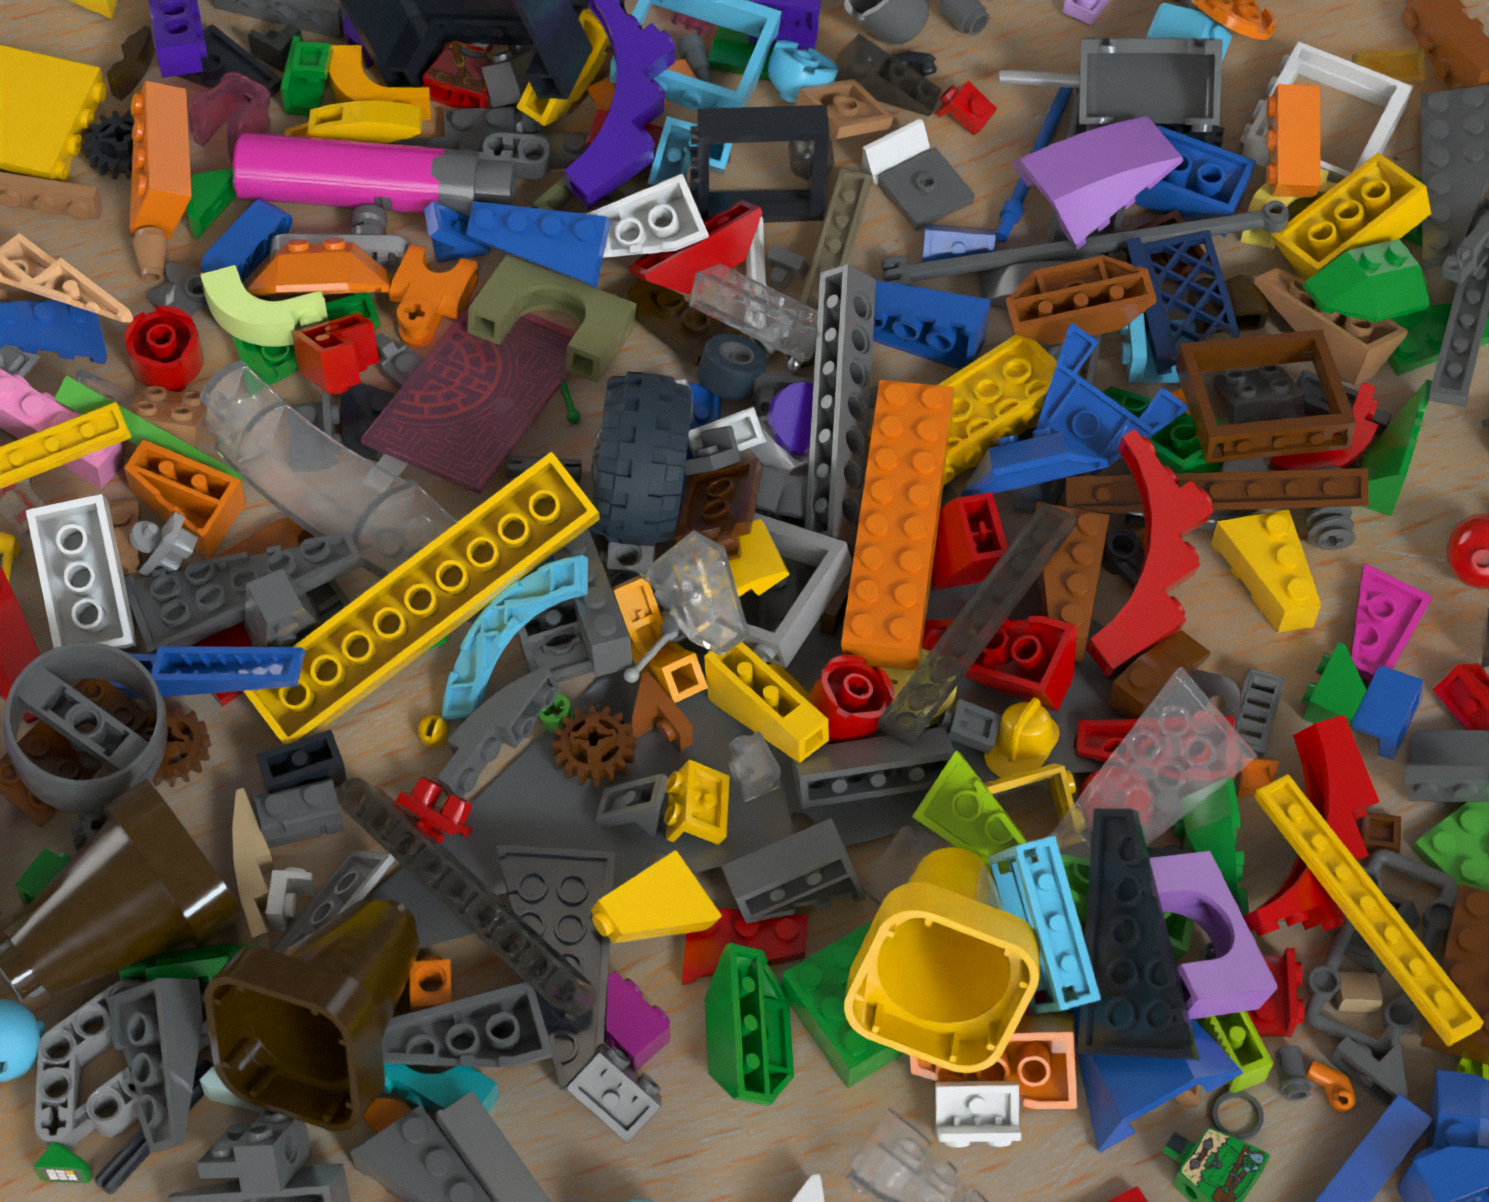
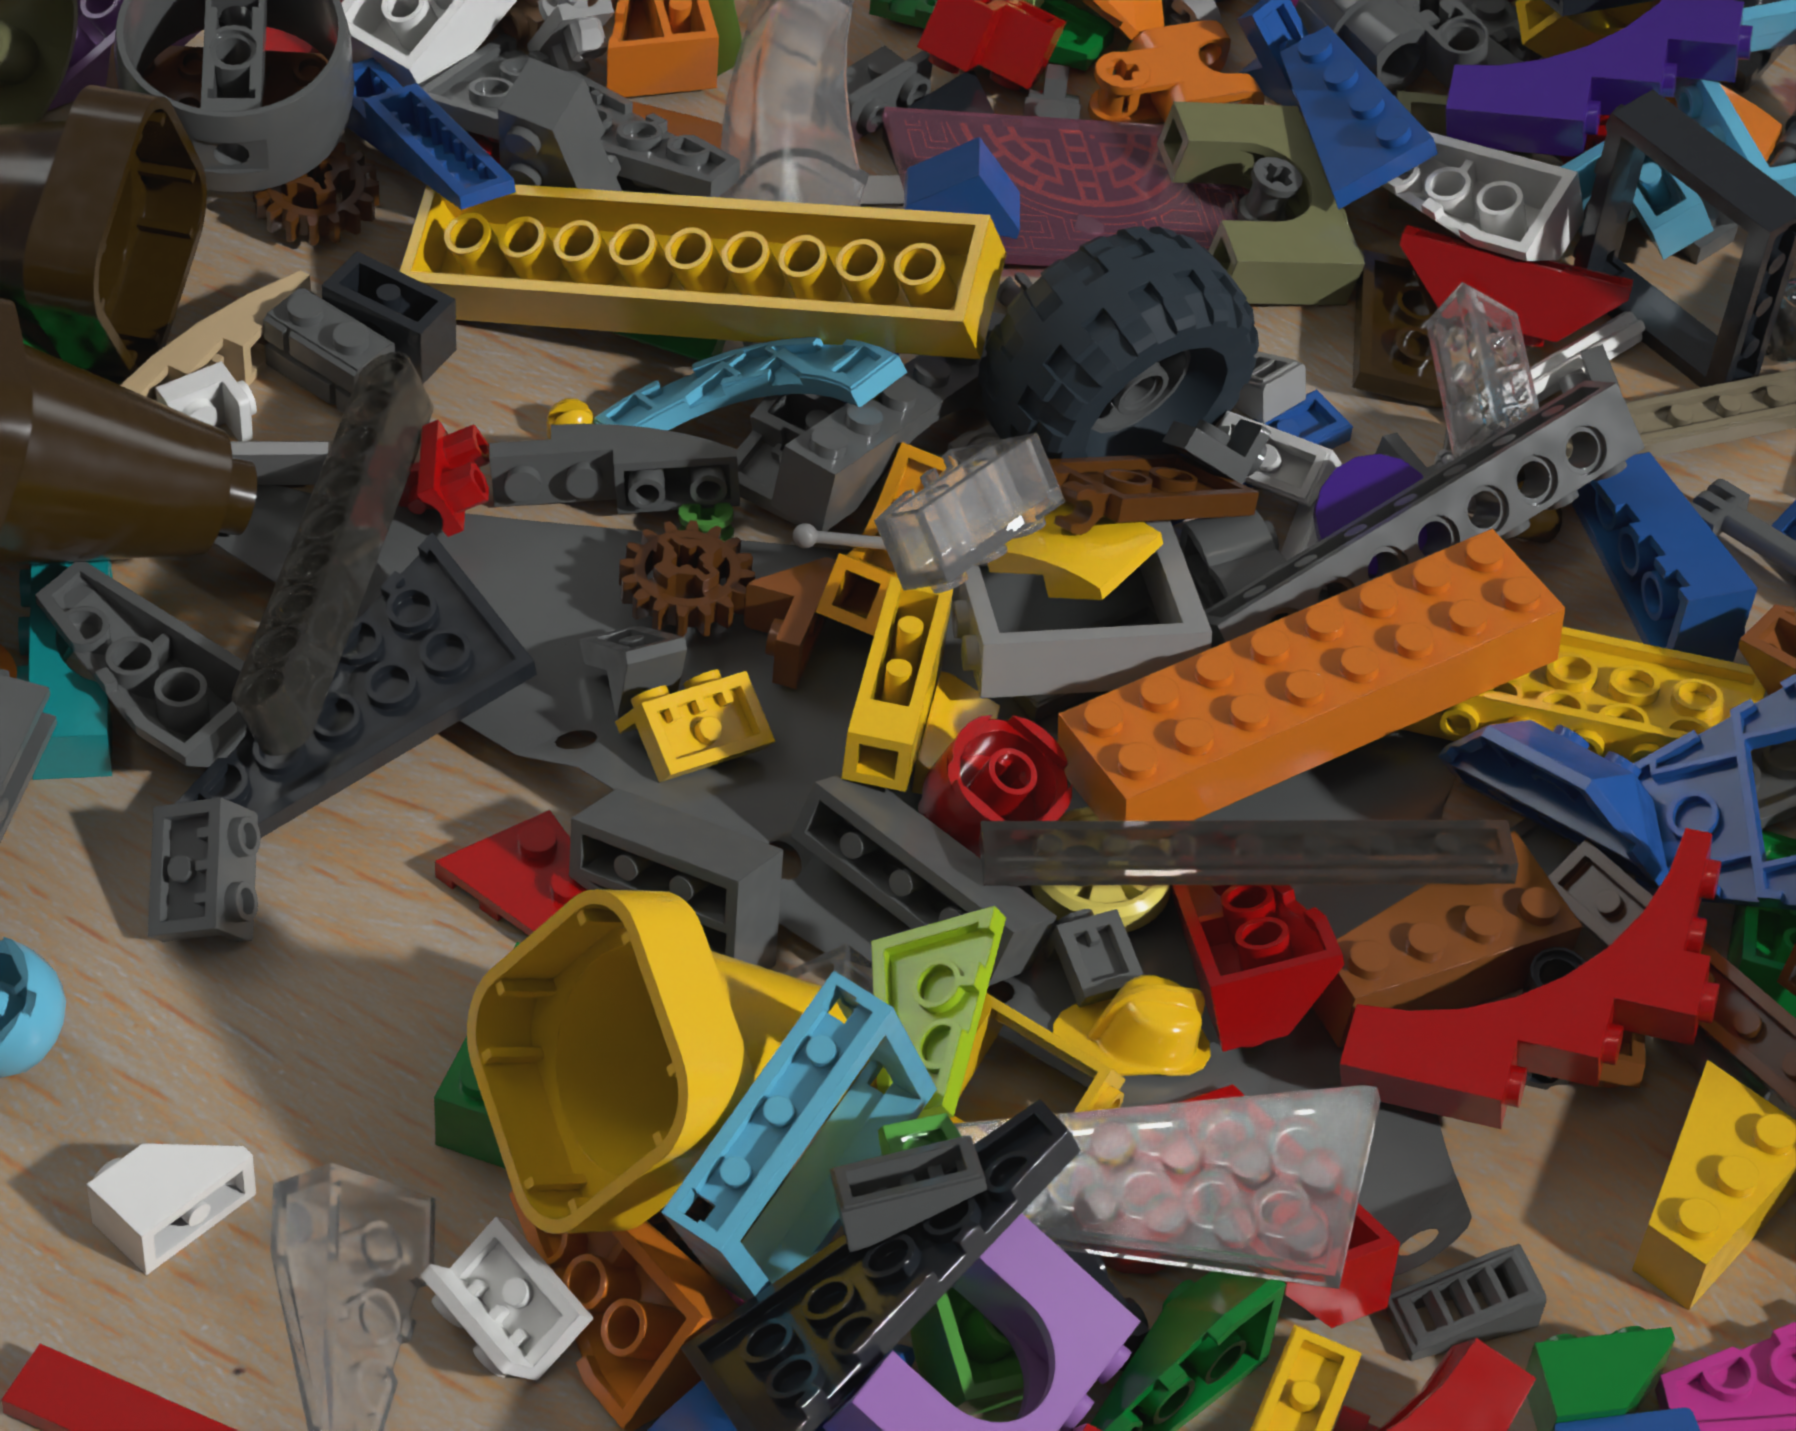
camera: 50 degrees right, 10 degrees down
(426, 971) = (204, 601): orange brick -> none
(455, 446) = (965, 182): none -> blue slope
(549, 314) = (1271, 189): none -> dark grey bush
(633, 1023) = (318, 840): magenta slope -> none
(655, 904) = (491, 740): yellow slope -> none
(731, 366) = (1380, 400): black wheel -> none
(748, 1027) = (413, 971): green wedge -> none
(753, 765) = (804, 752): clear brick -> none
(967, 541) = (1385, 780): red slope -> none
(1104, 917) = (904, 1188): none -> dark grey slope
(1151, 671) = (1424, 1140): reddish brown slope -> none
(1255, 776) = (1379, 1369): orange tile -> none

